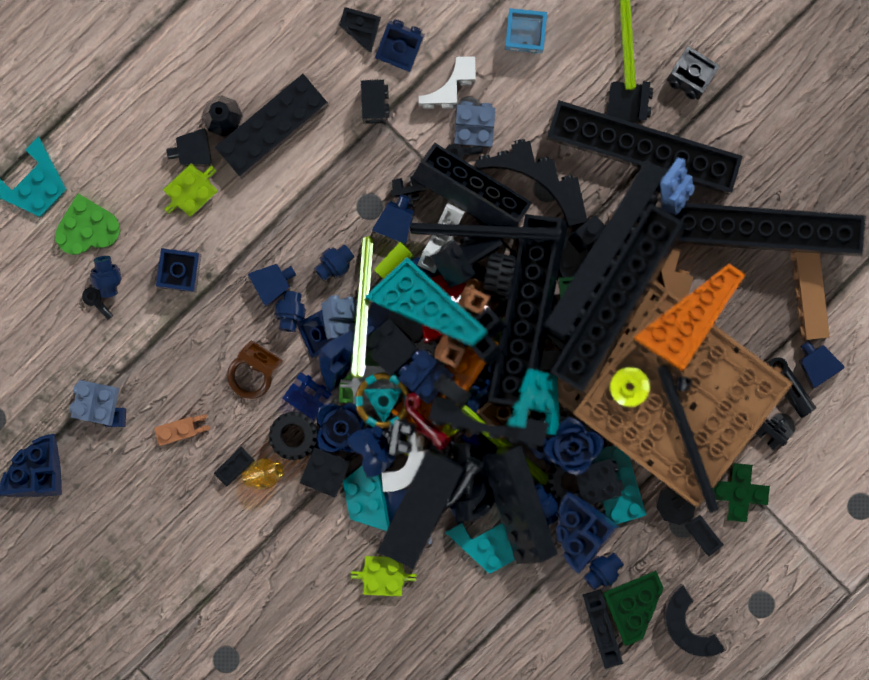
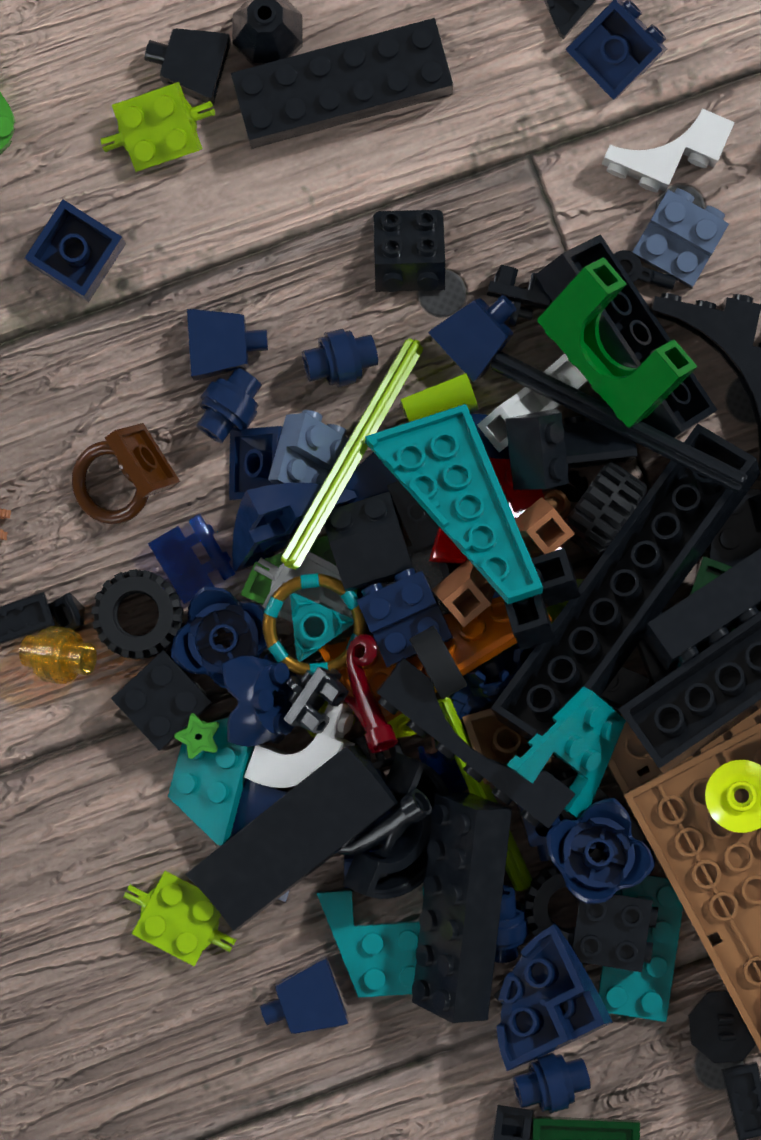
camera: 25 degrees right, 0 degrees up
(258, 450) = (68, 612): none -> black slope
(343, 193) = (409, 250): none -> black bracket
(346, 481) = (194, 727): none -> bright green plate
(373, 101) = (528, 123): black piece -> none
(442, 194) = (574, 327): none -> green arch
(465, 586) = (307, 1000): none -> dark blue torso

